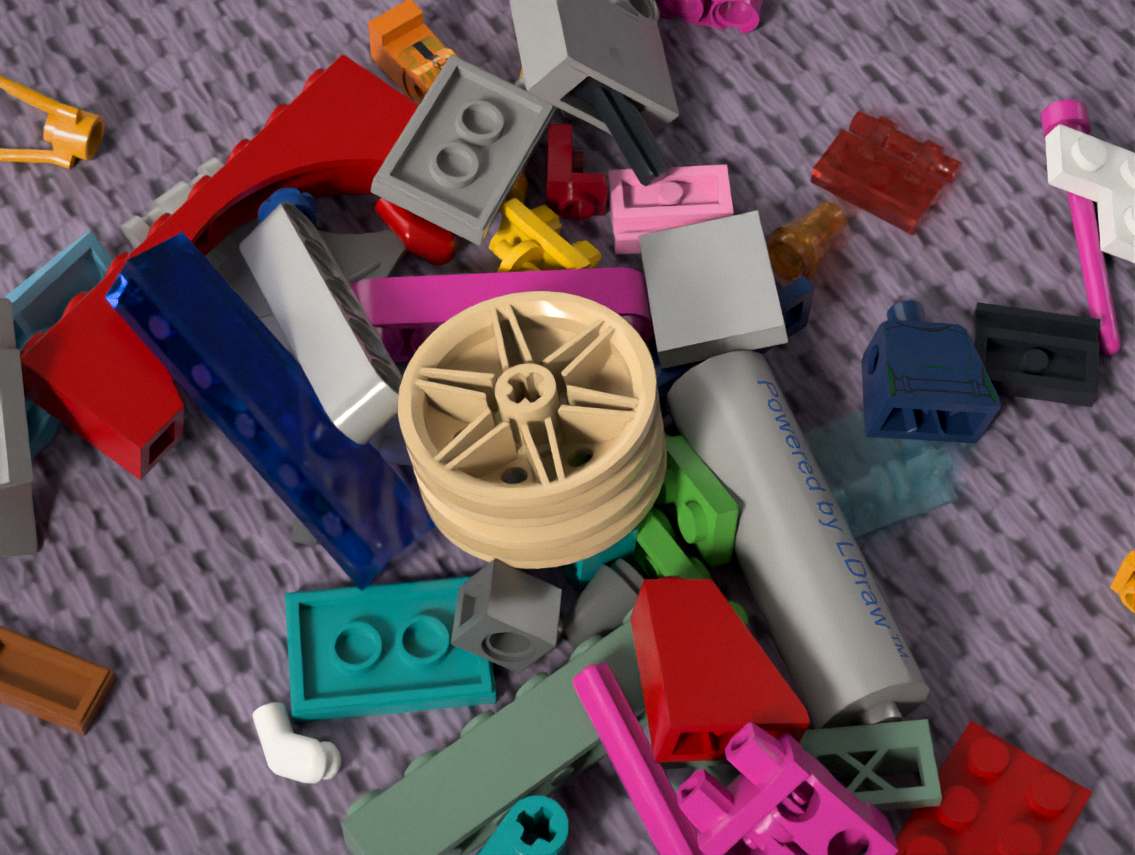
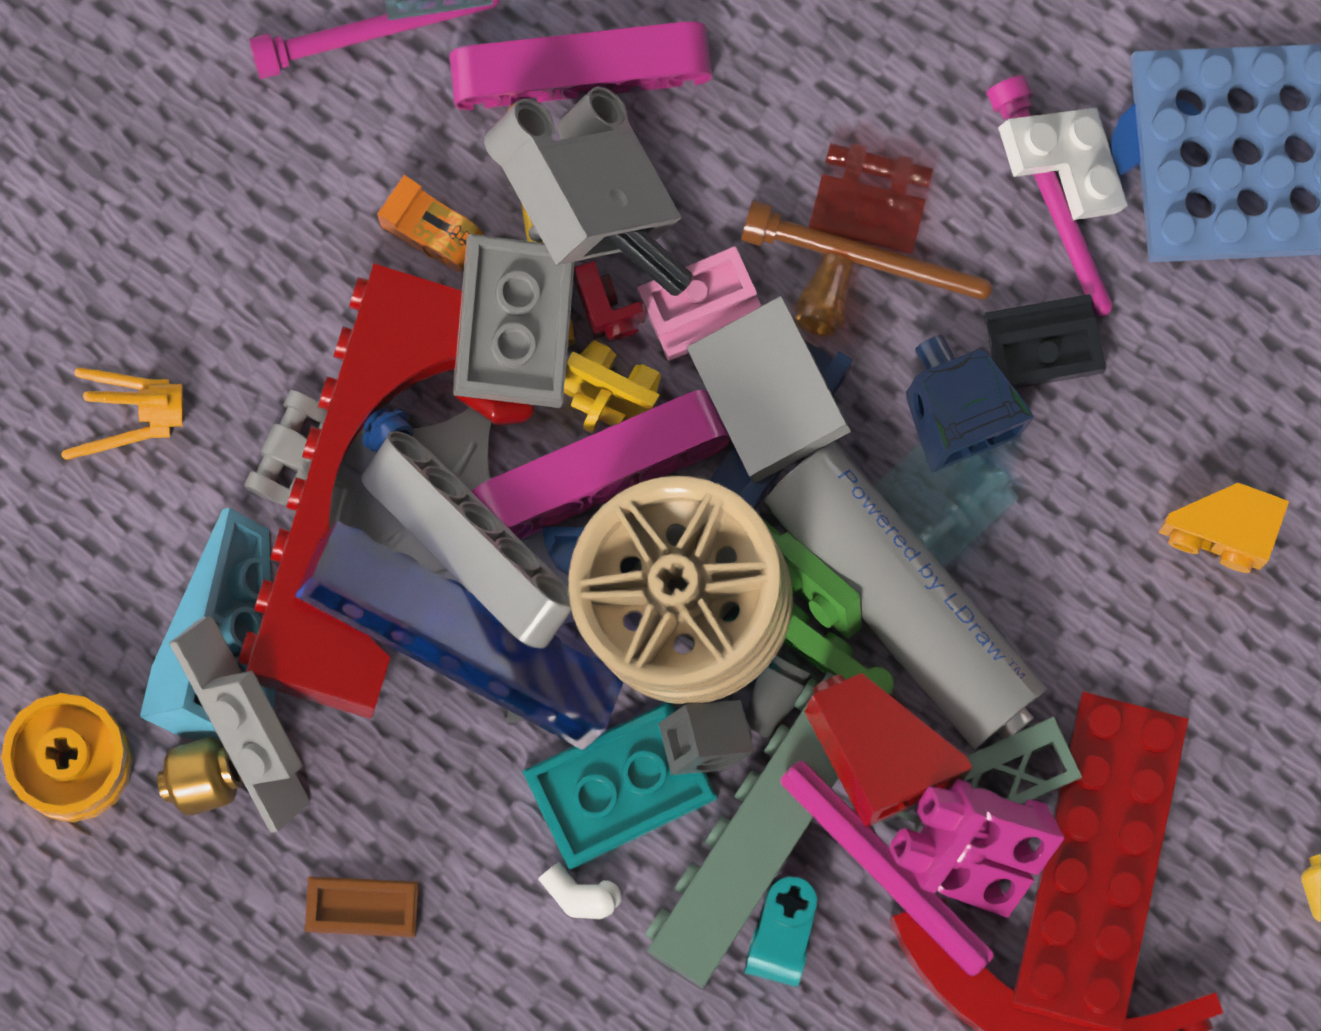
camera: 20 degrees left, 20 degrees up
(765, 161) = (766, 225): none -> dark orange piece

